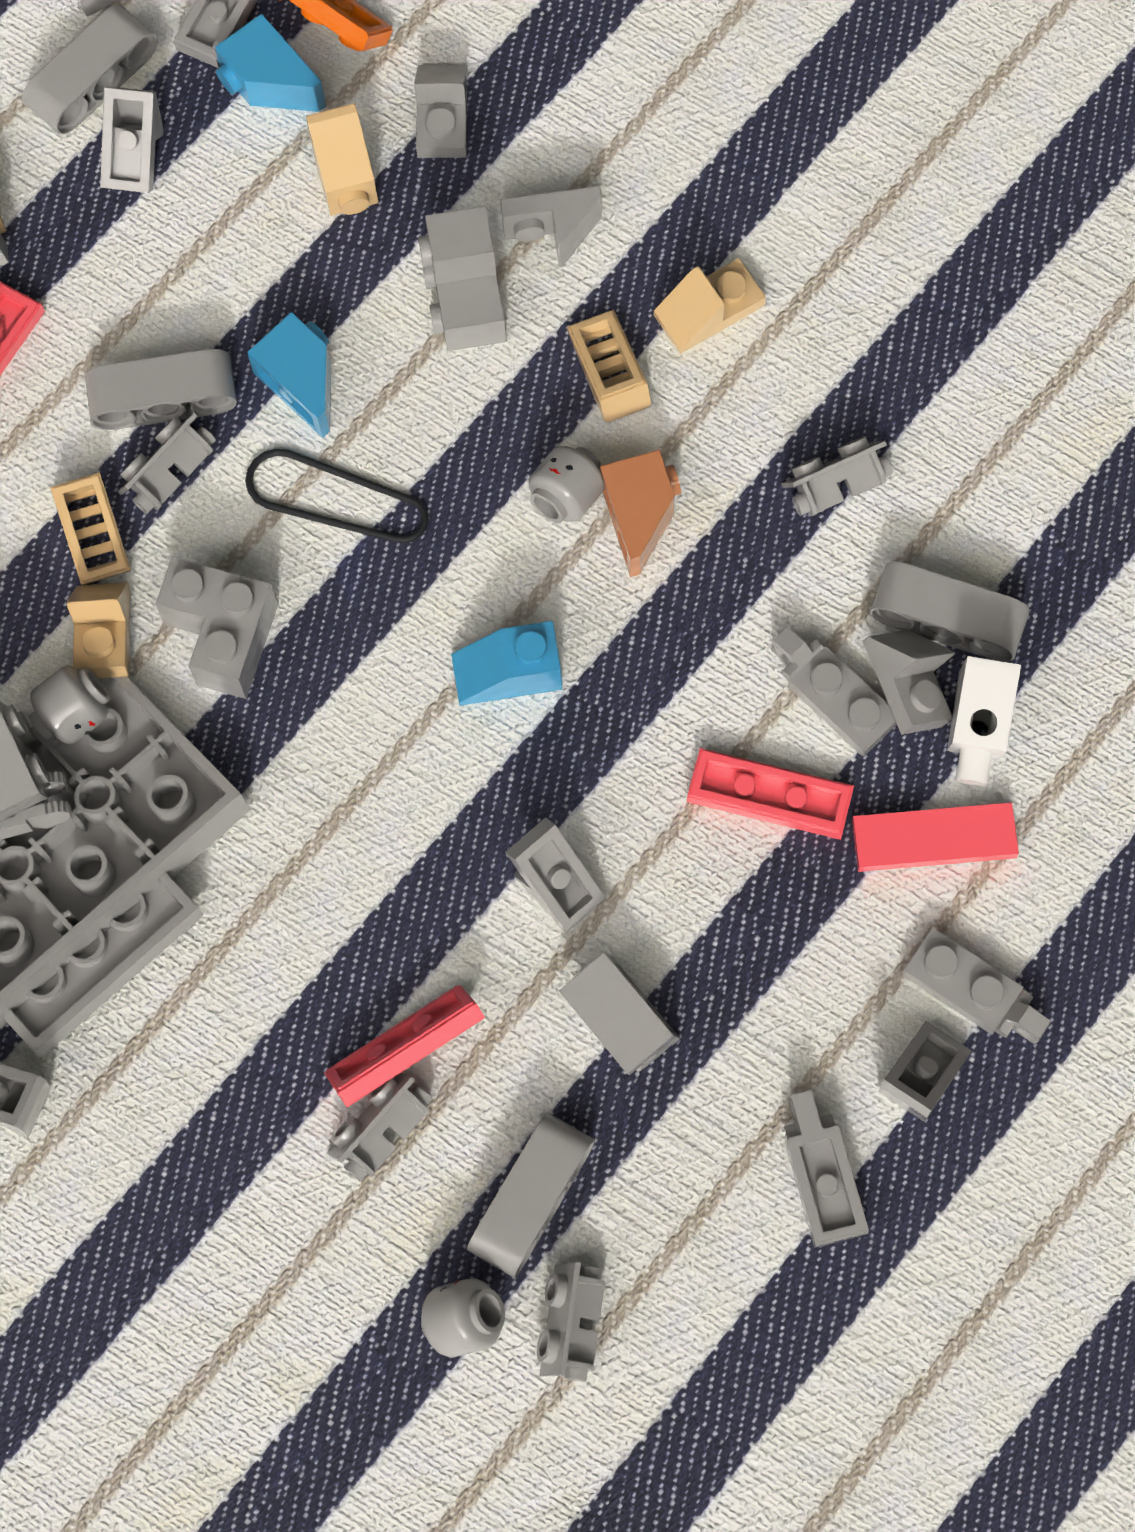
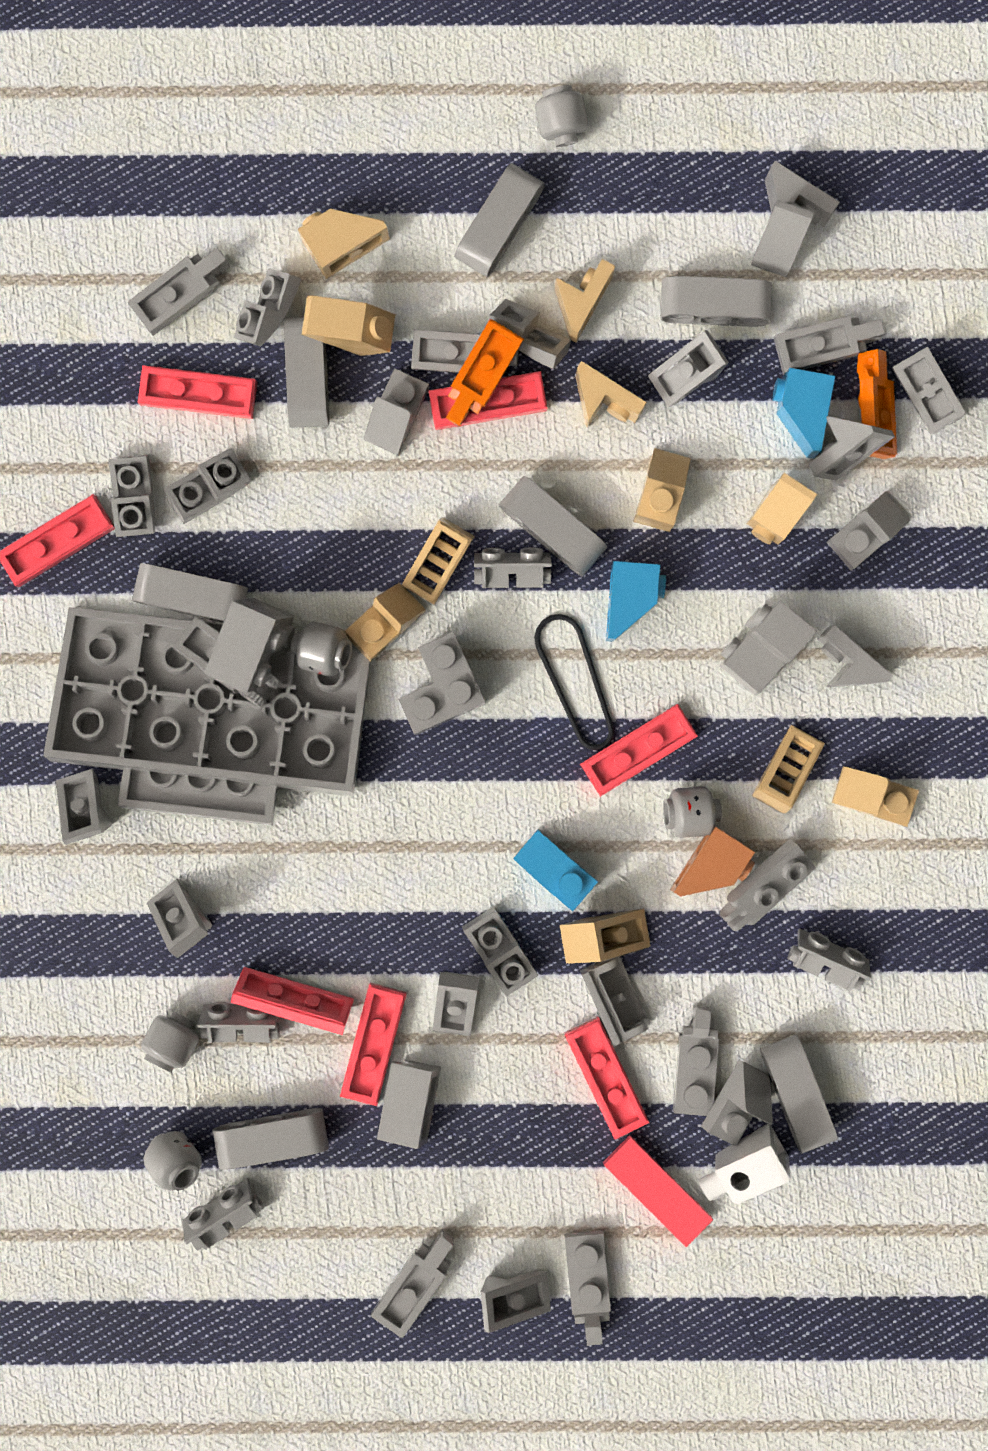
camera: 50 degrees right, 15 degrees up
(70, 238) = (598, 389): none -> tan slope
(210, 1092) = (178, 918): none -> light grey slope
(226, 264) = (662, 490): none -> tan slope
(332, 1214) = (170, 1041): none -> light grey head
(343, 42) = (853, 445): none -> light grey slope
(459, 491) = (638, 750): none -> coral tile
(526, 1005) = (373, 1044): none -> coral tile
(536, 792) = (499, 951): none -> light grey slope
(617, 671) = (604, 936): none -> tan slope
(691, 717) = (615, 999): none -> light grey hinge
(707, 473) = (766, 886): none -> light grey hinge

